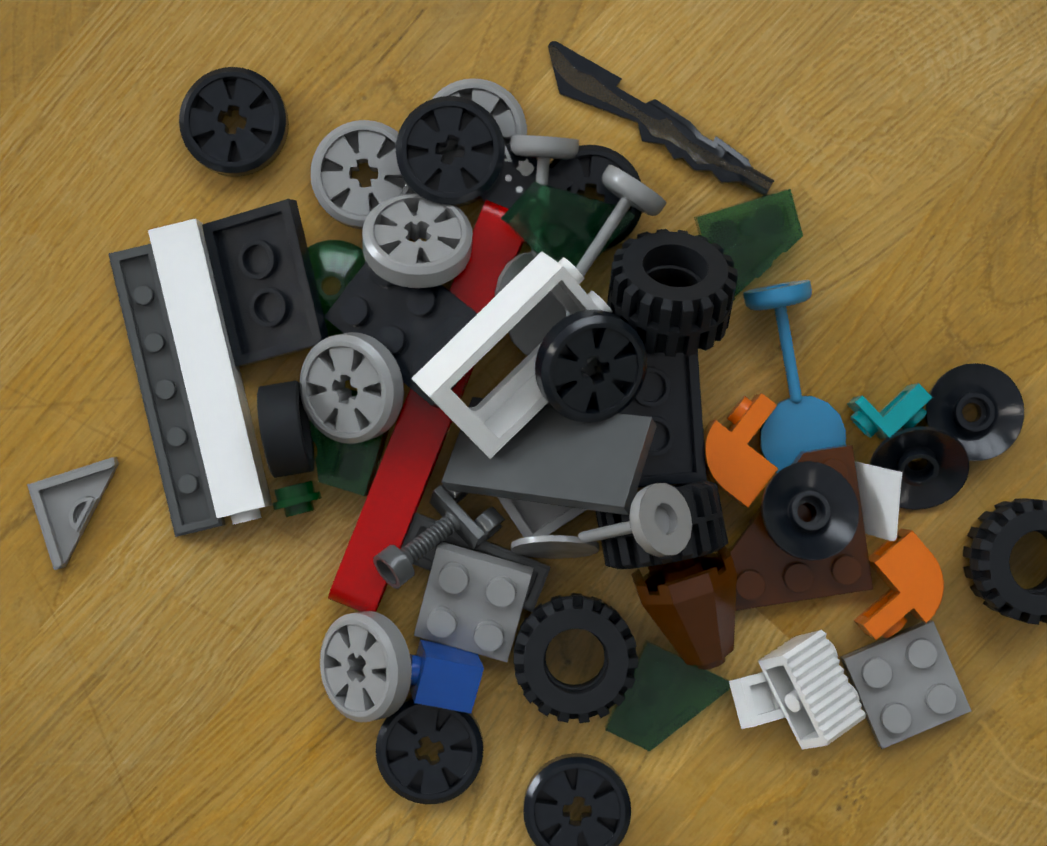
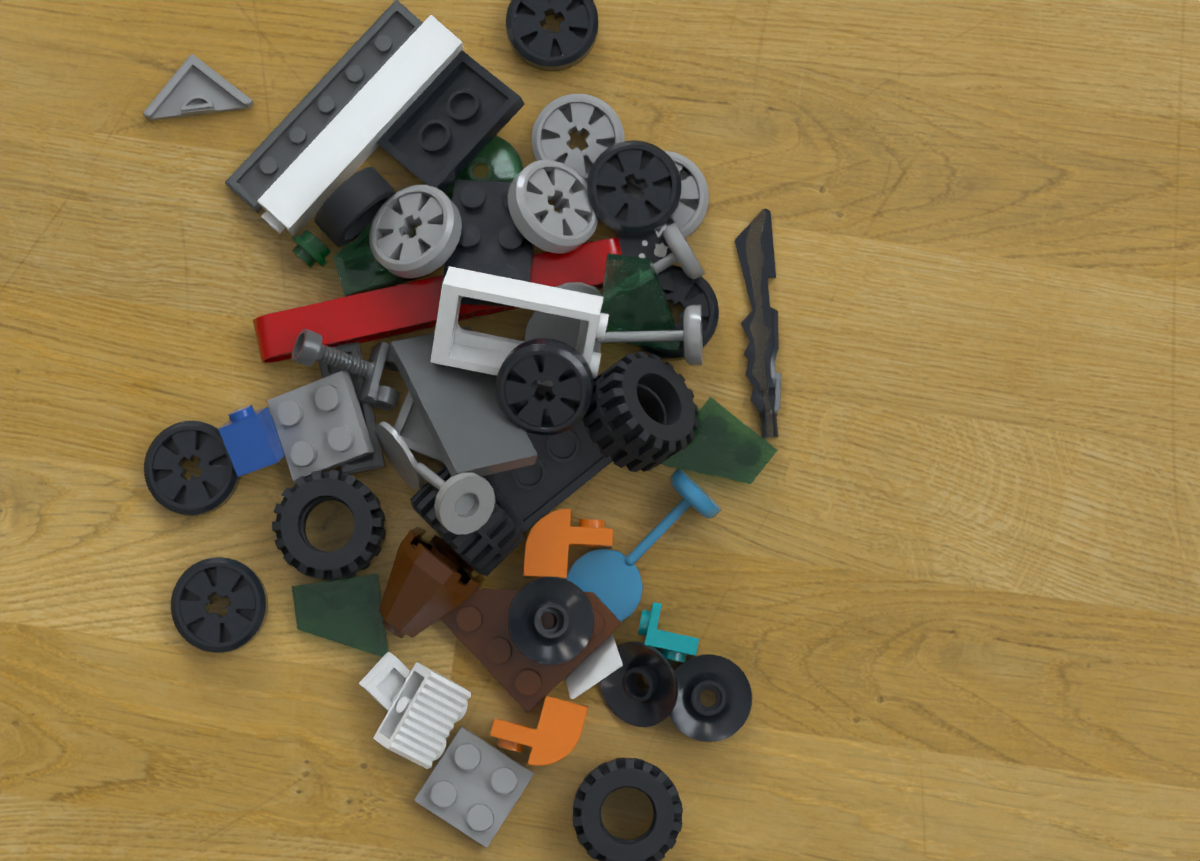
camera: 60 degrees right, 5 degrees down
(365, 666) = (221, 378): light grey wheel -> none

